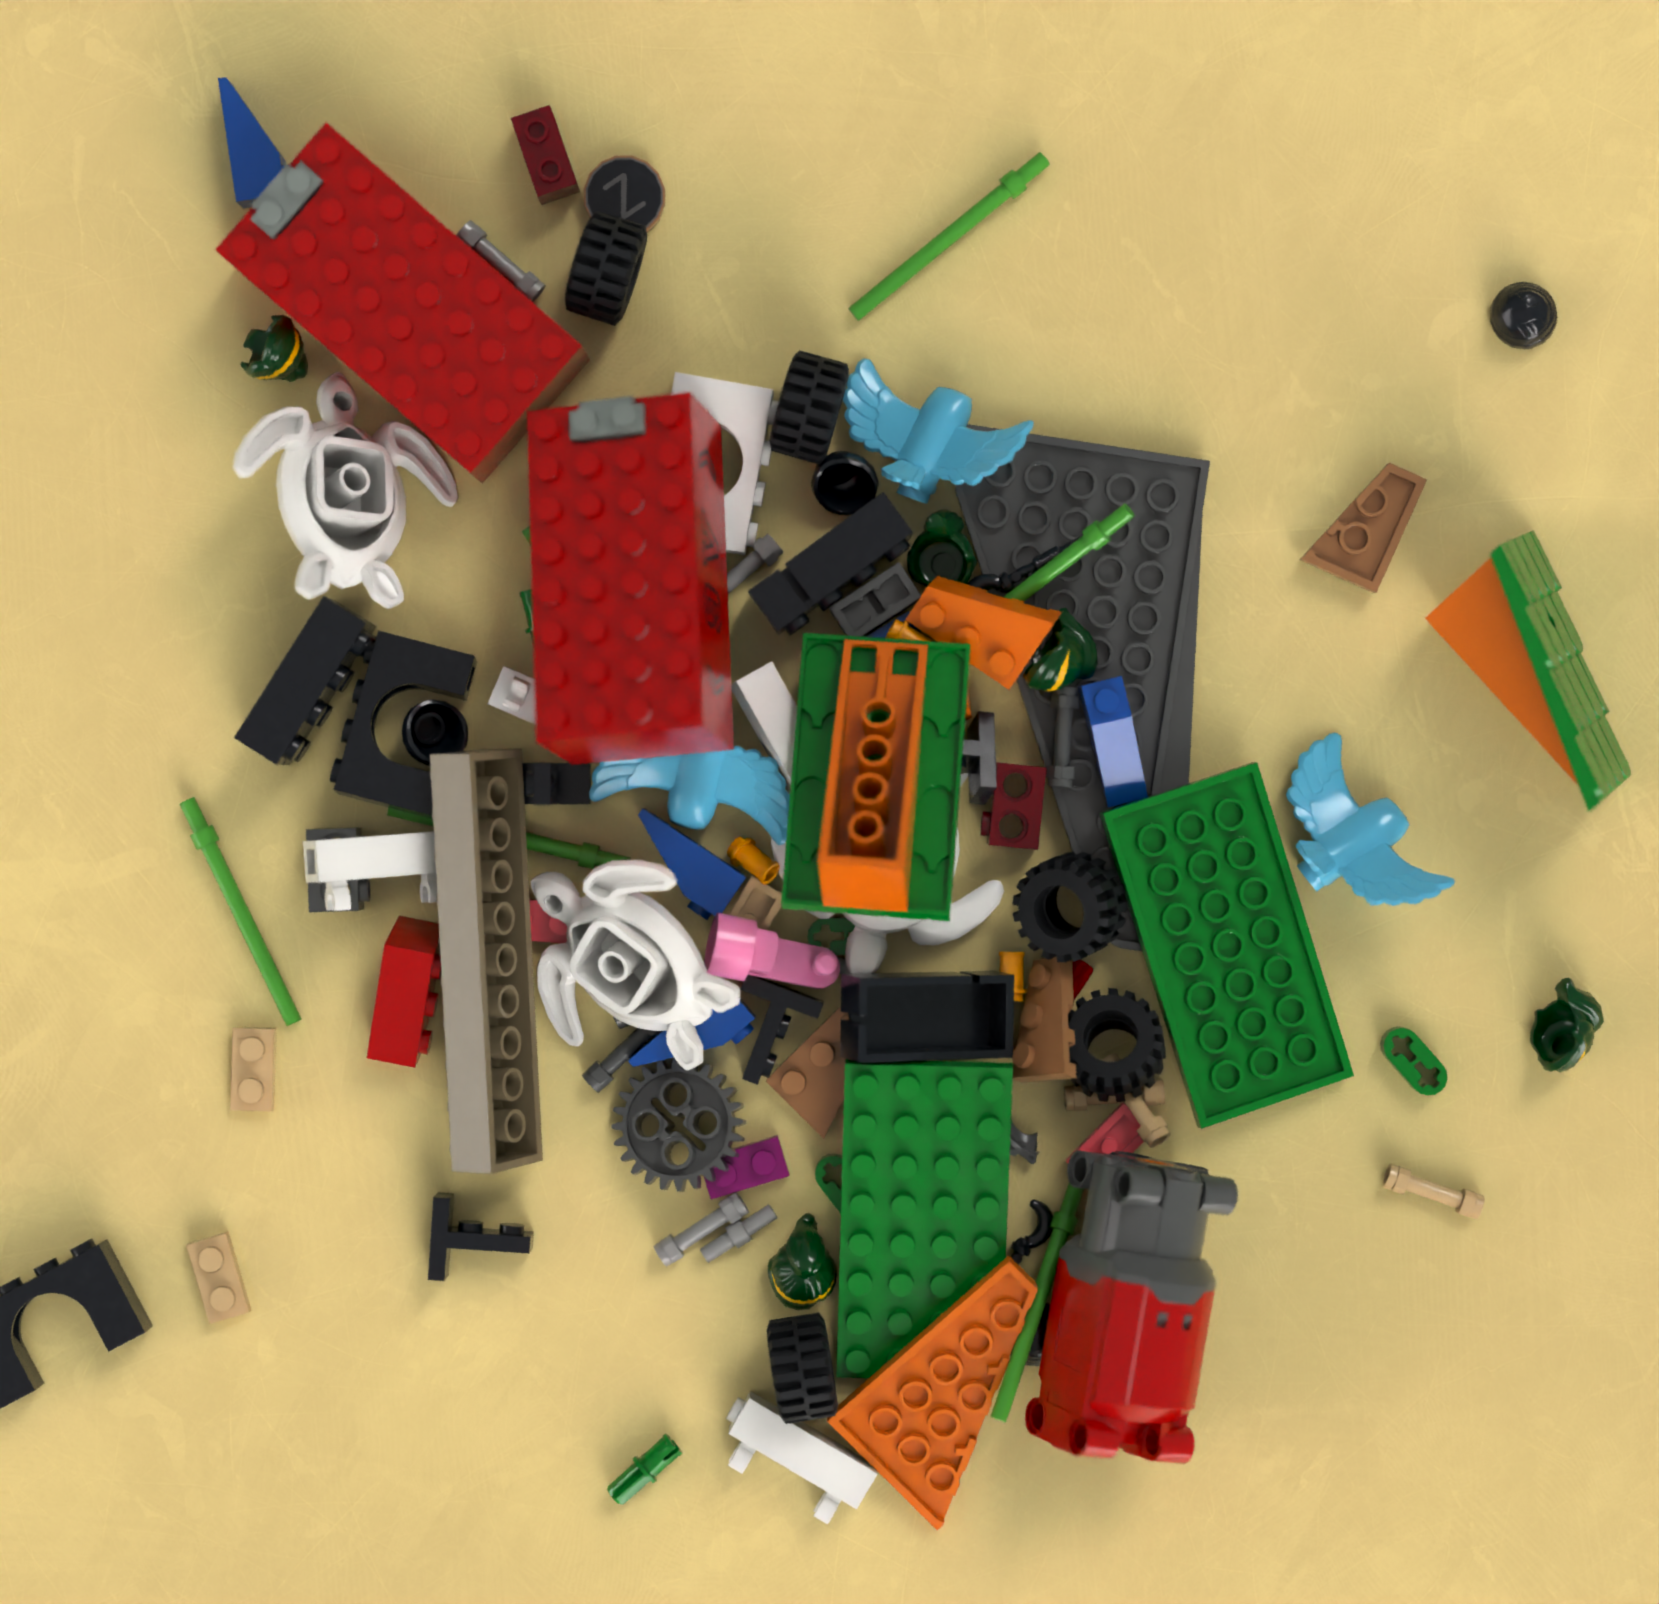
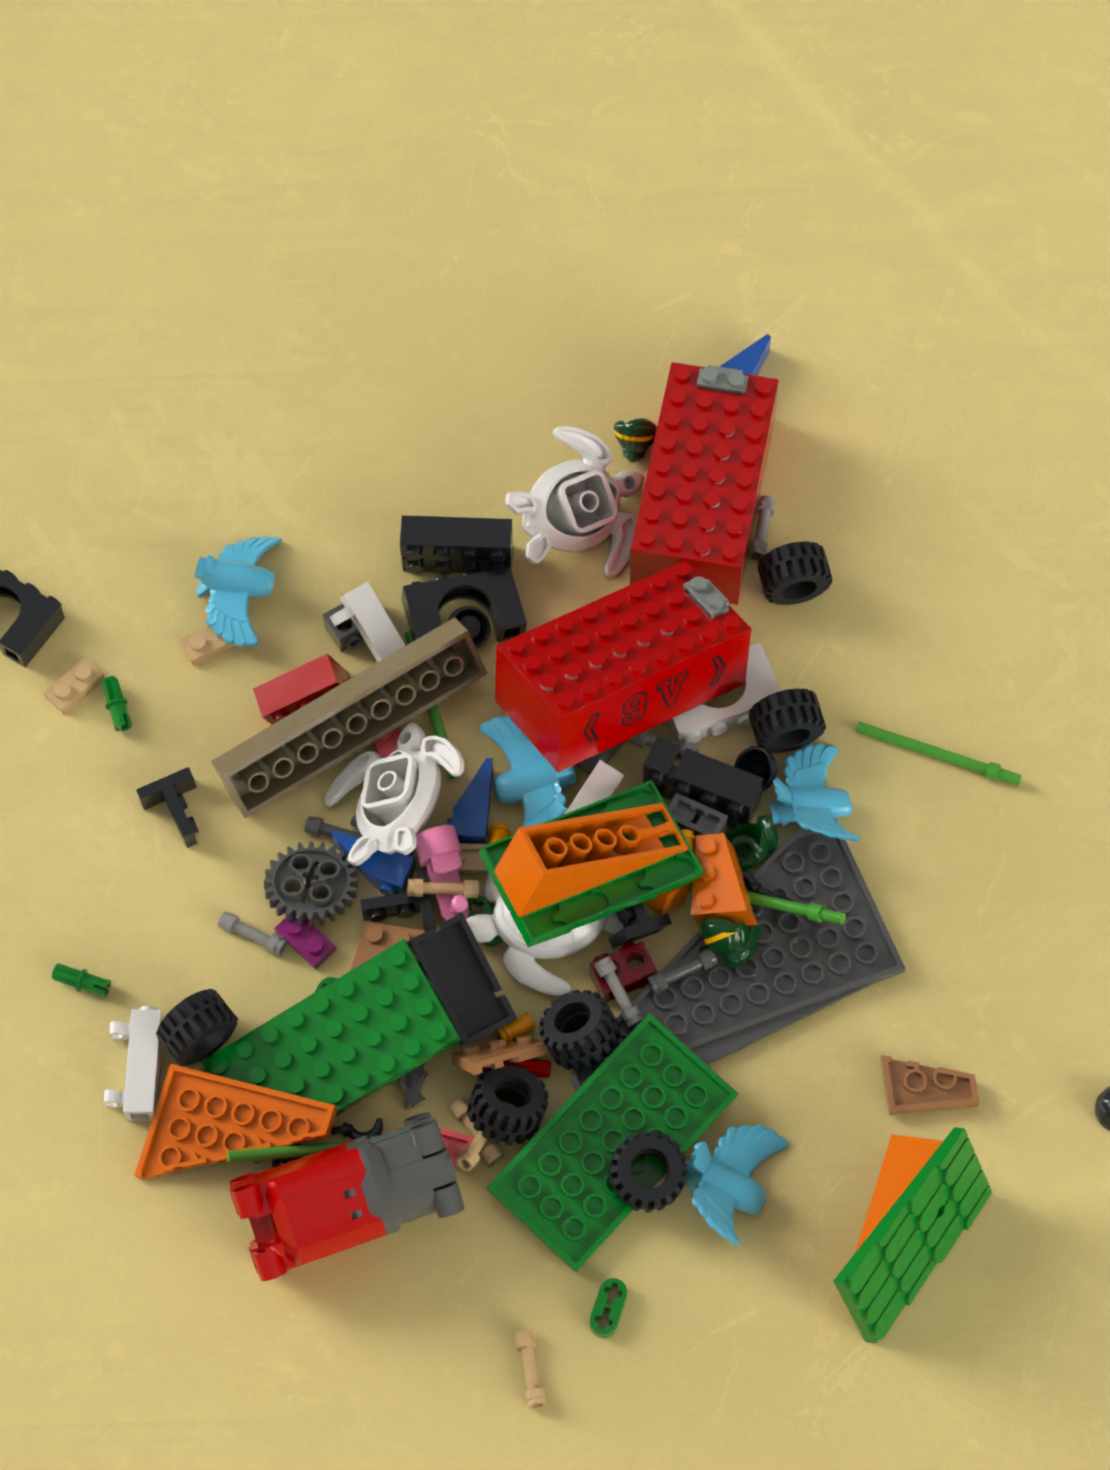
camera: 60 degrees right, 25 degrees down
(193, 999) = (231, 584): none -> medium azure animal
(205, 838) = (332, 548): bright green bar -> none
(279, 1238) = (116, 704): none -> green axle
(545, 155) = (837, 516): dark red brick -> none
(556, 783) = (475, 702): black bracket -> none
(627, 190) = (849, 571): black tile -> none
(738, 1233) = (261, 956): light grey bar -> none
(772, 1002) = (468, 888): none -> tan bar
(802, 1268) = (261, 1002): dark green hair -> none
(1016, 831) = (631, 1014): none -> light grey bar
(1113, 740) = (701, 997): blue slope -> none
(1330, 938) = (663, 1150): none -> black tyre
(1565, 1027) = (690, 1390): dark green hair -> none

